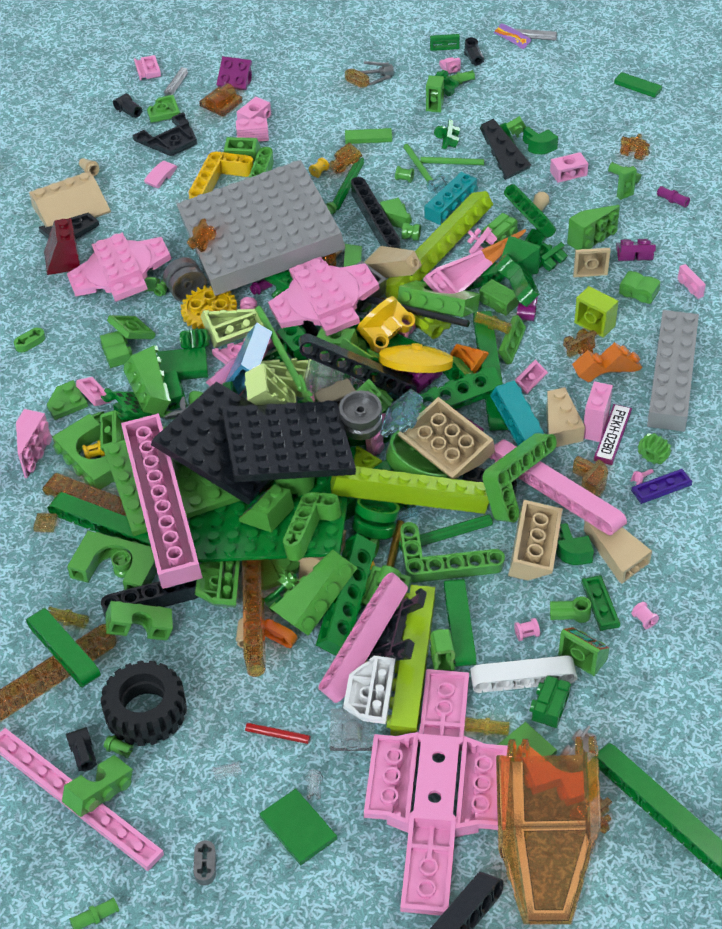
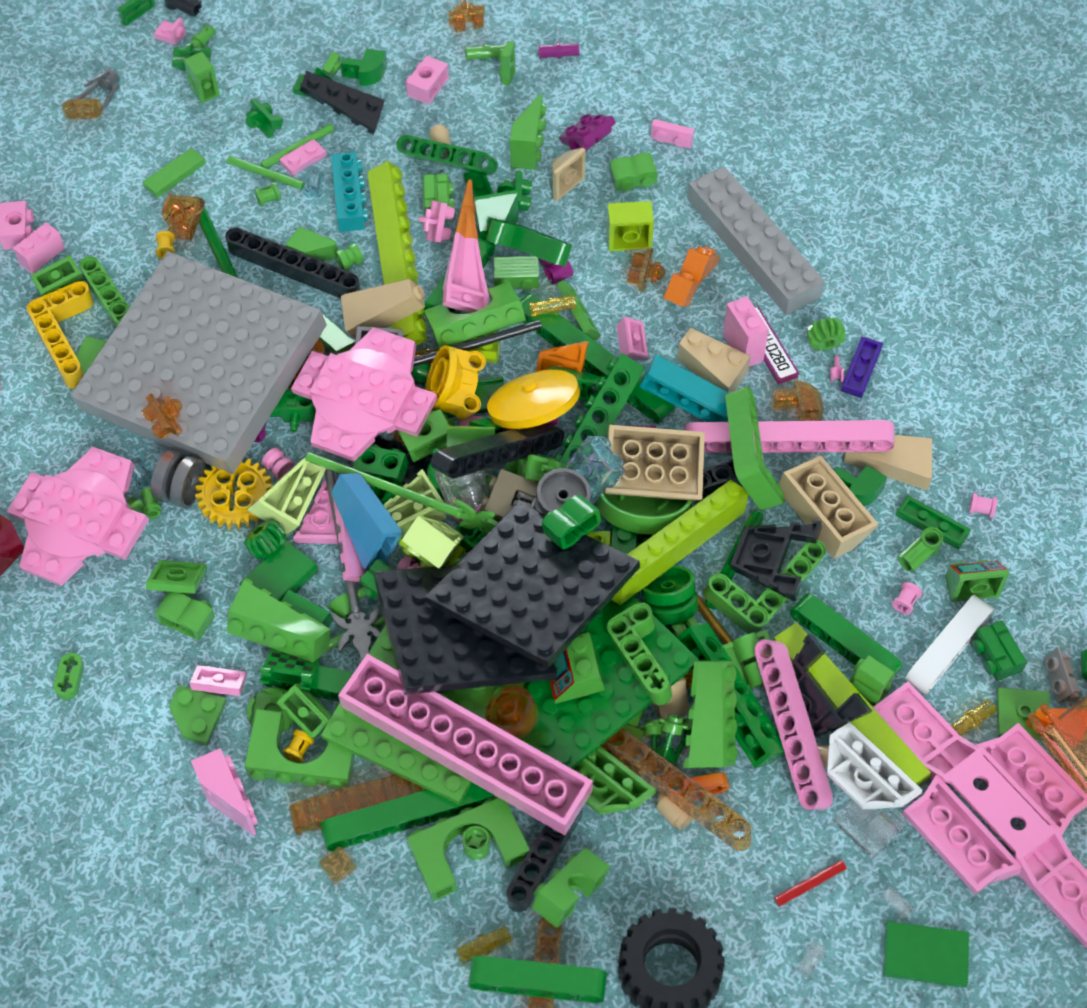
camera: 45 degrees left, 10 degrees up
(204, 506) = (513, 711): none -> clear orange cylinder
(341, 421) = (571, 521): none -> green brick
(450, 168) = (302, 157): none -> bright pink plate
(463, 534) = (764, 550): none -> black wing

